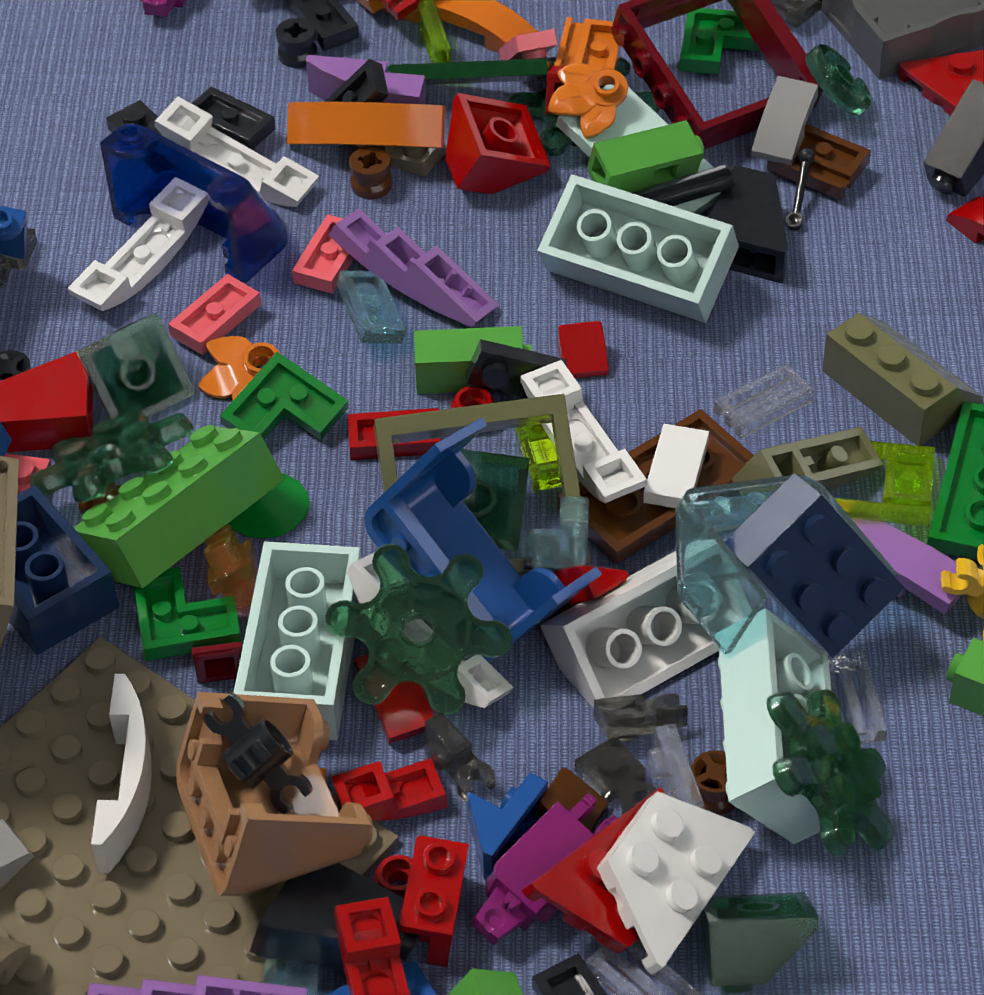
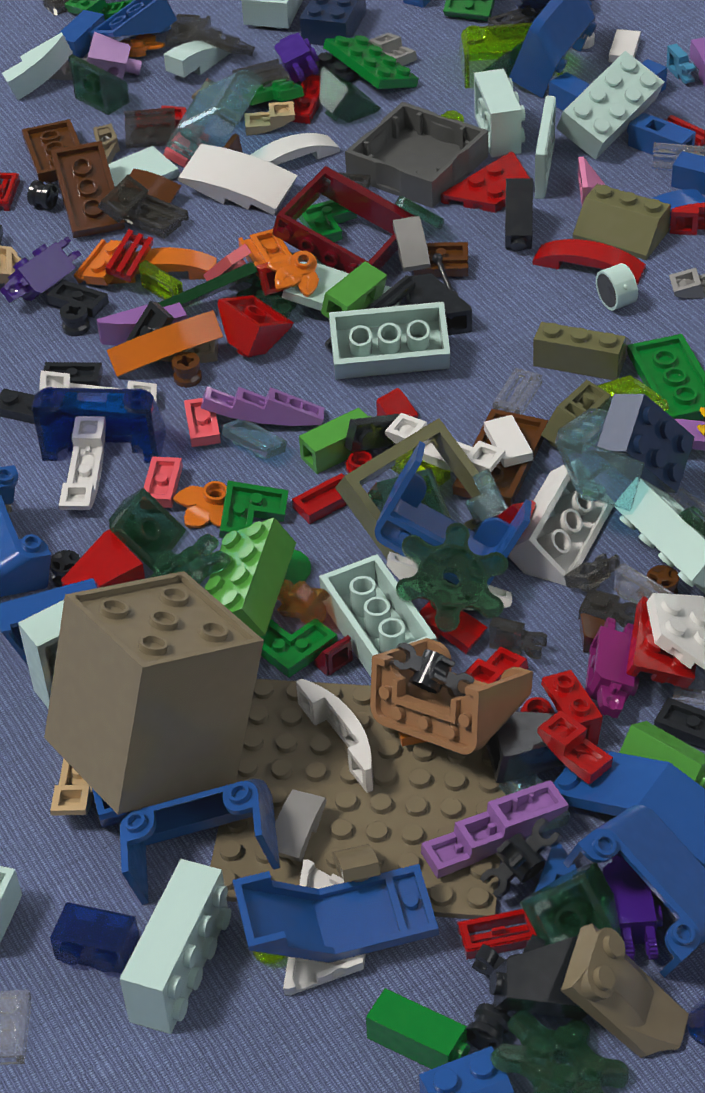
camera: 30 degrees left, 5 degrees down
(499, 828) = (569, 655): blue slope -> none

